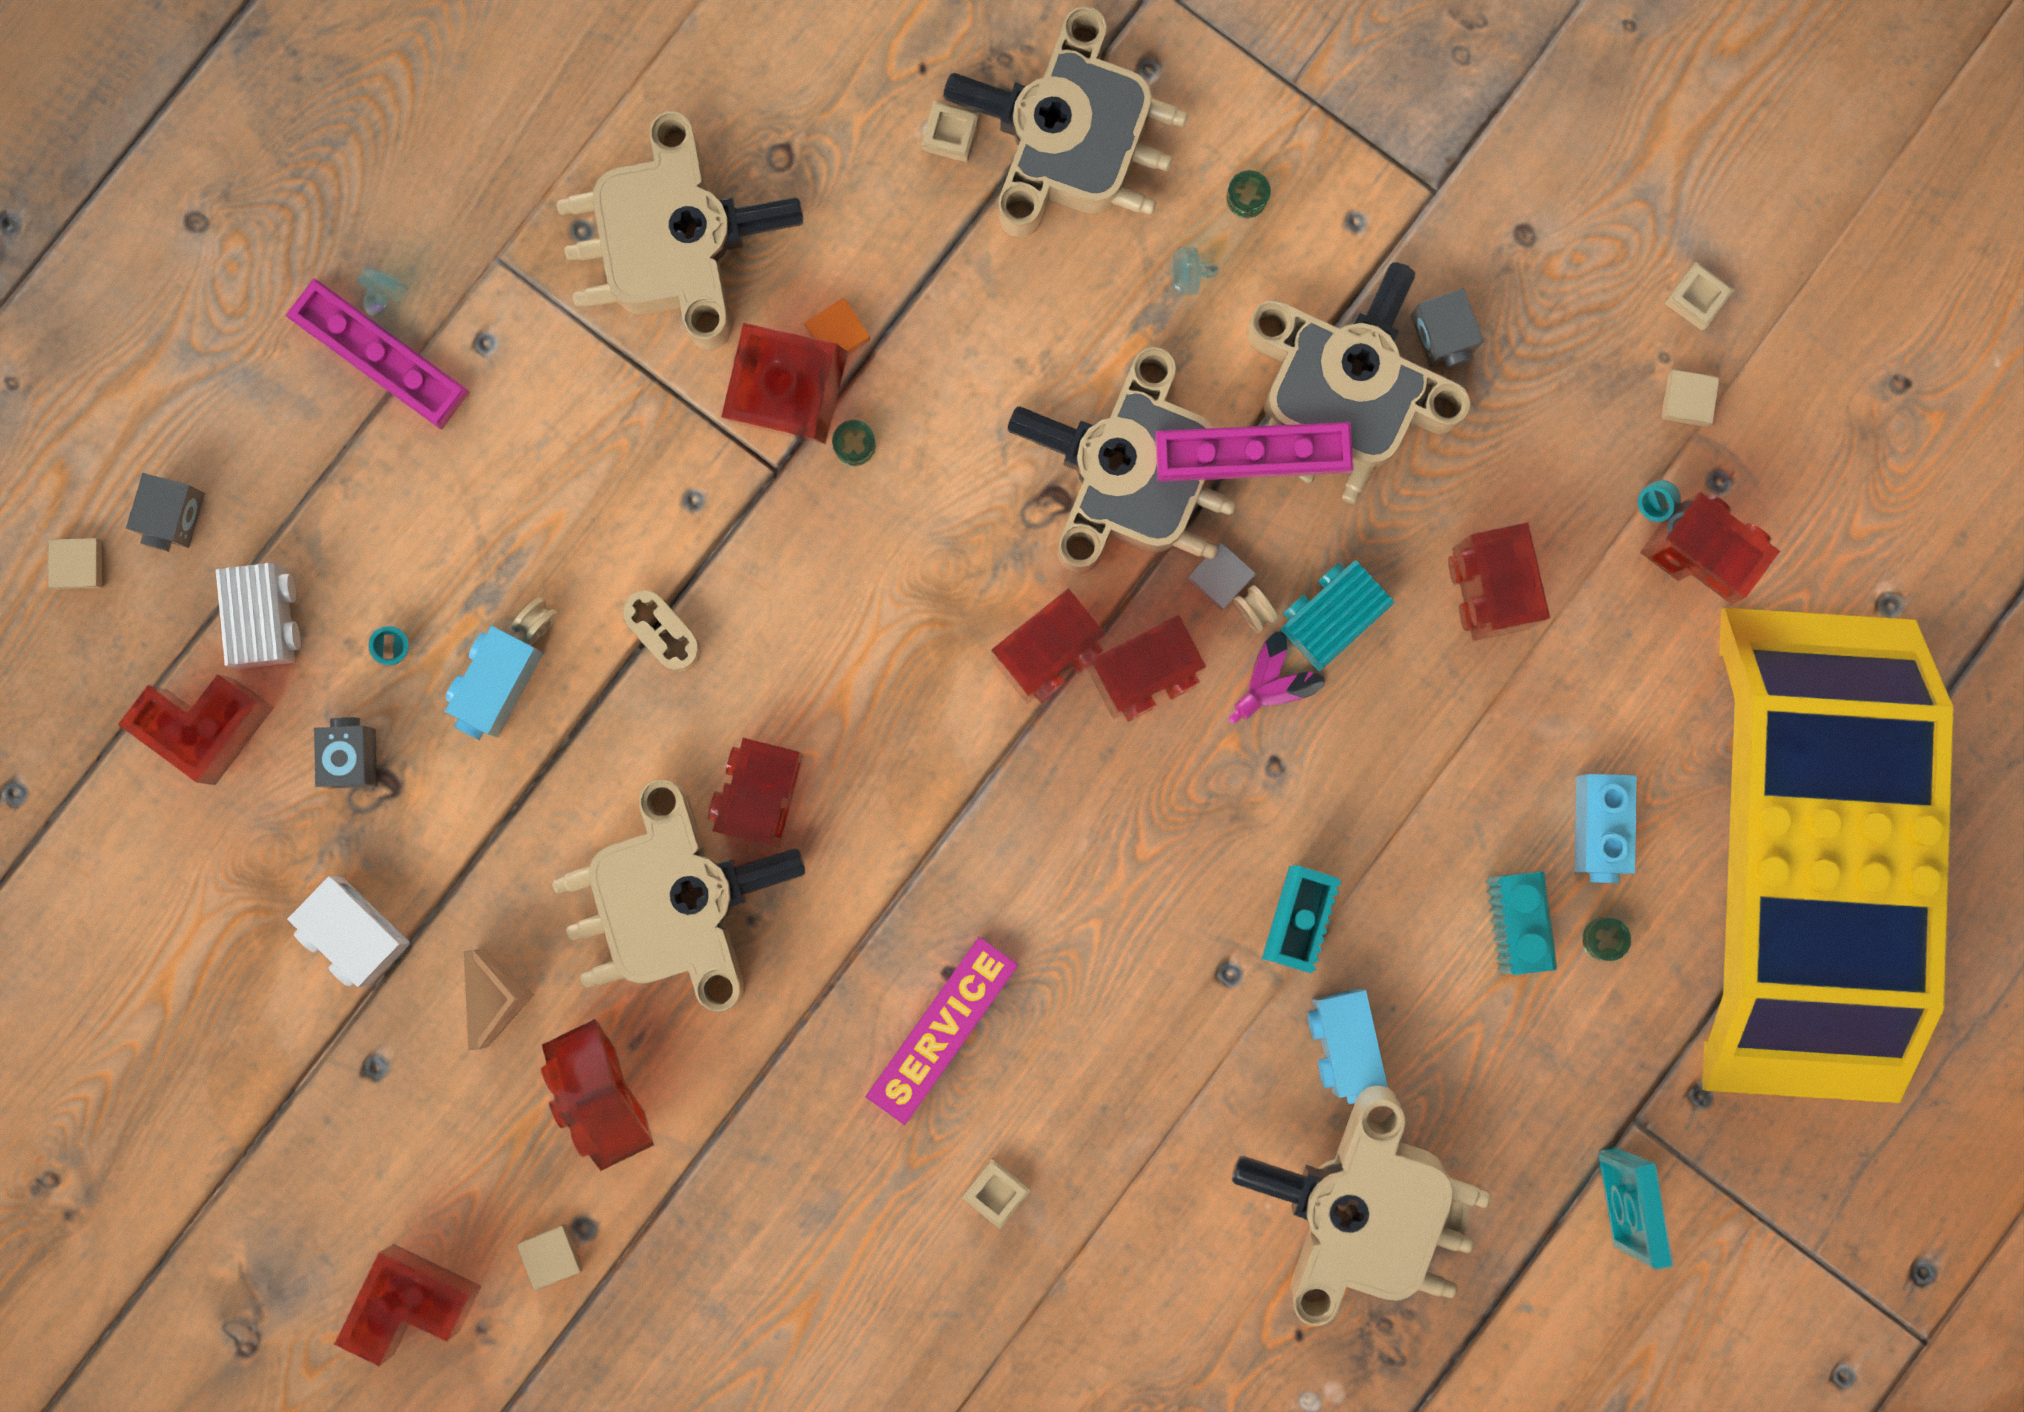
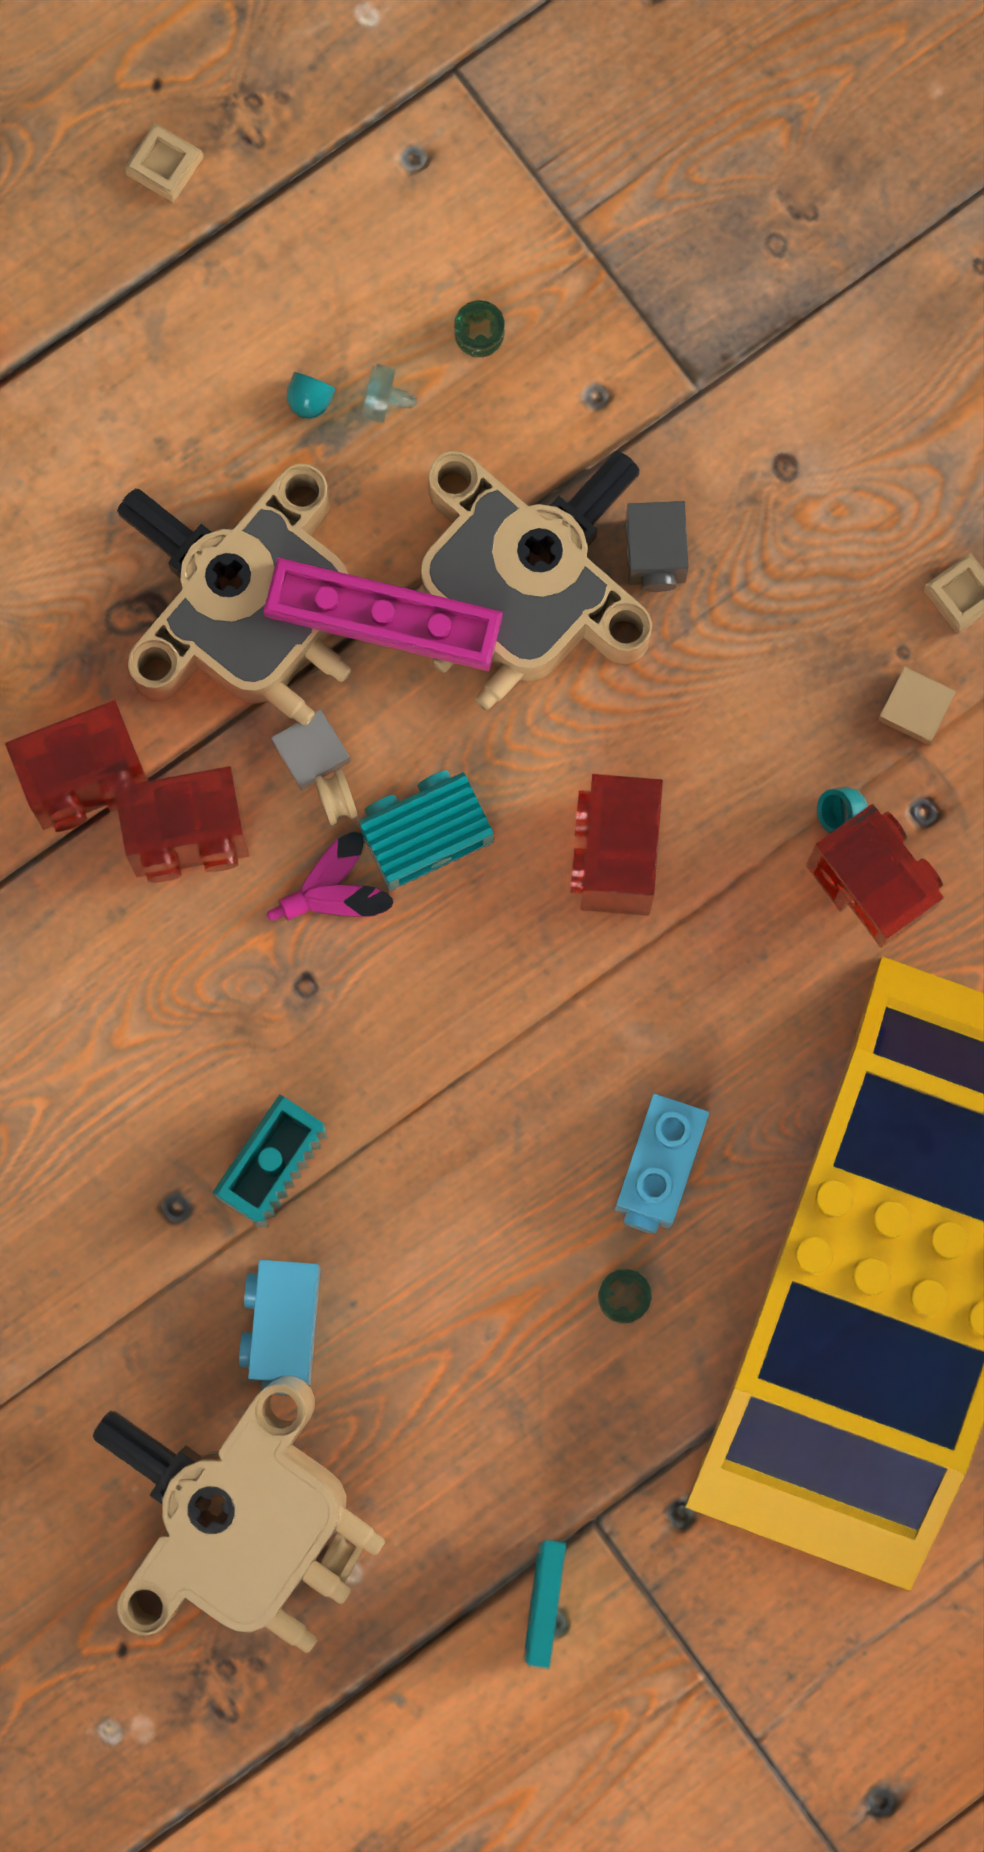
camera: 20 degrees right, 5 degrees down
(1094, 142) = (321, 224): piece -> none
(1129, 289) = (308, 395): none -> teal hinge
(1522, 923) = (527, 1244): teal brick -> none

